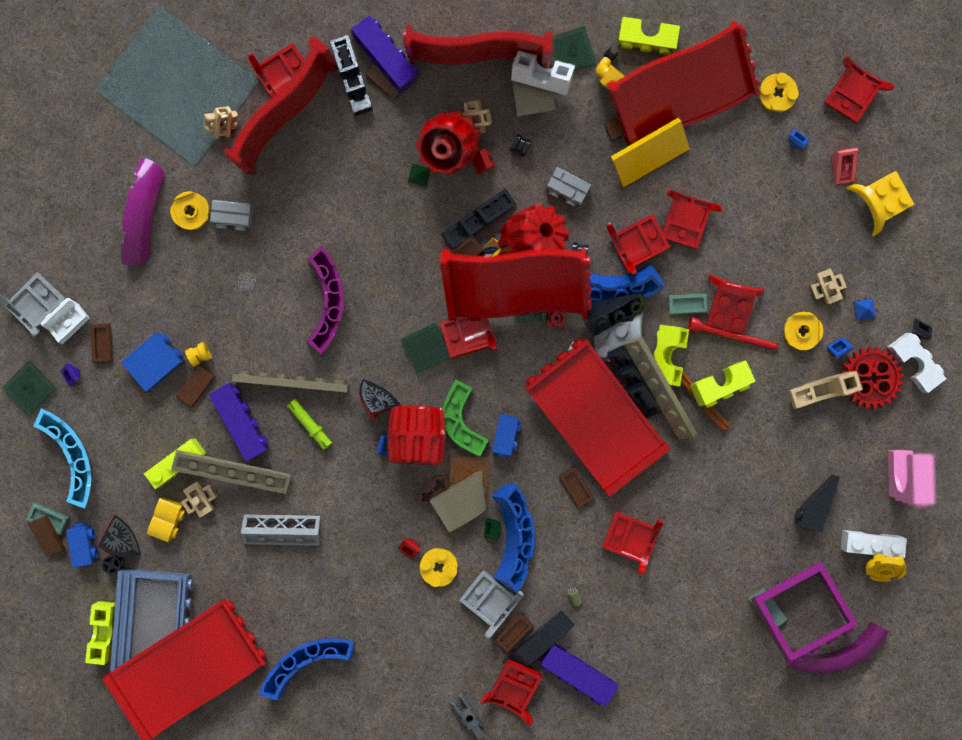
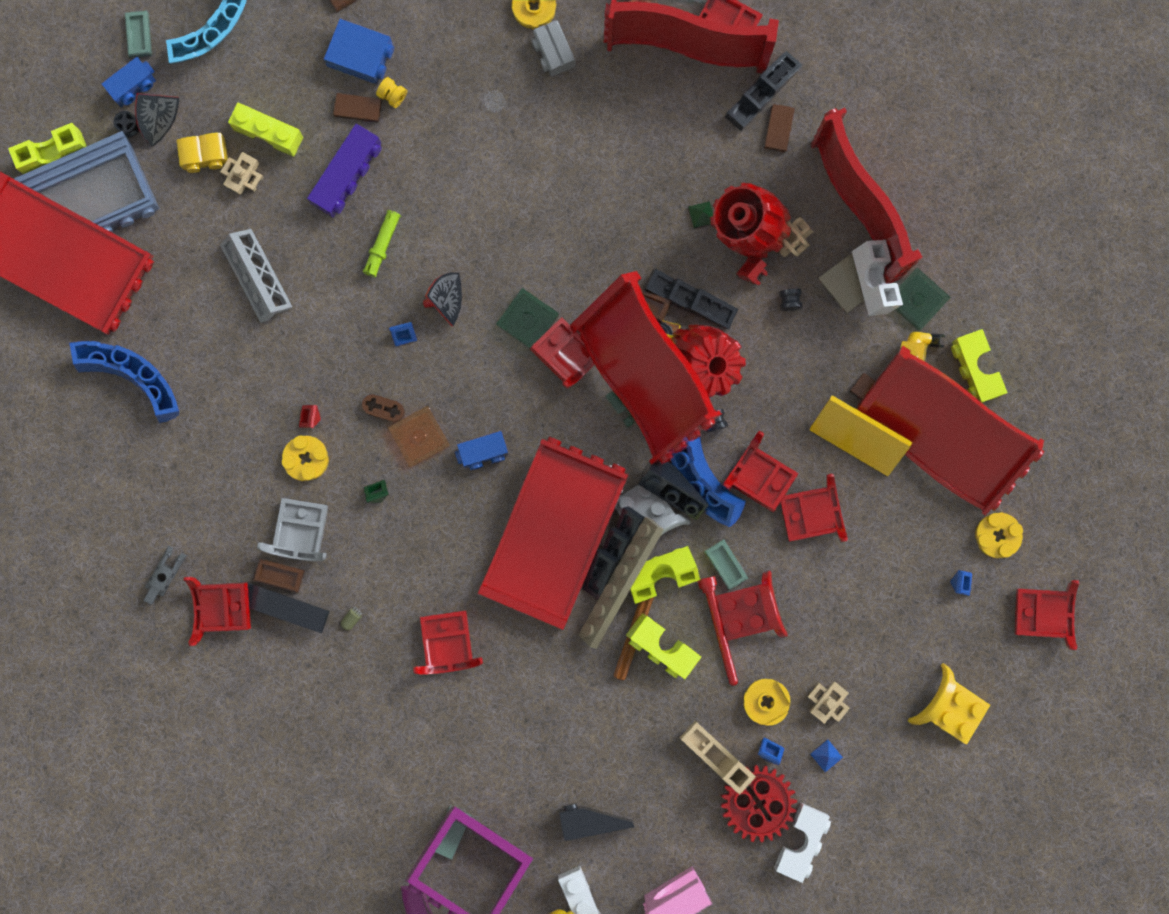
camera: 60 degrees right, 5 degrees down
(46, 535) = (120, 41): reddish brown tile -> none
(230, 471) = (287, 188): dark tan plate -> none
(282, 380) = (412, 191): dark tan plate -> none
(332, 300) = (522, 196): magenta brick -> none
(384, 54) = (804, 111): dark purple brick -> none
(416, 435) = (430, 356): red wheel -> none
(454, 422) = (466, 390): bright green plate -> none
(461, 502) = (386, 442): dark tan slope -> none
(519, 537) = (382, 525): blue brick -> none
(560, 322) = (627, 434): red plate -> none
(567, 187) = (776, 371): light grey brick -> none
(576, 487) = (469, 556): reddish brown tile -> none
(579, 674) = (271, 668): dark purple brick -> none
(844, 165) = (963, 647): coral slope -> none
(922, 330) = (839, 828): black slope -> none

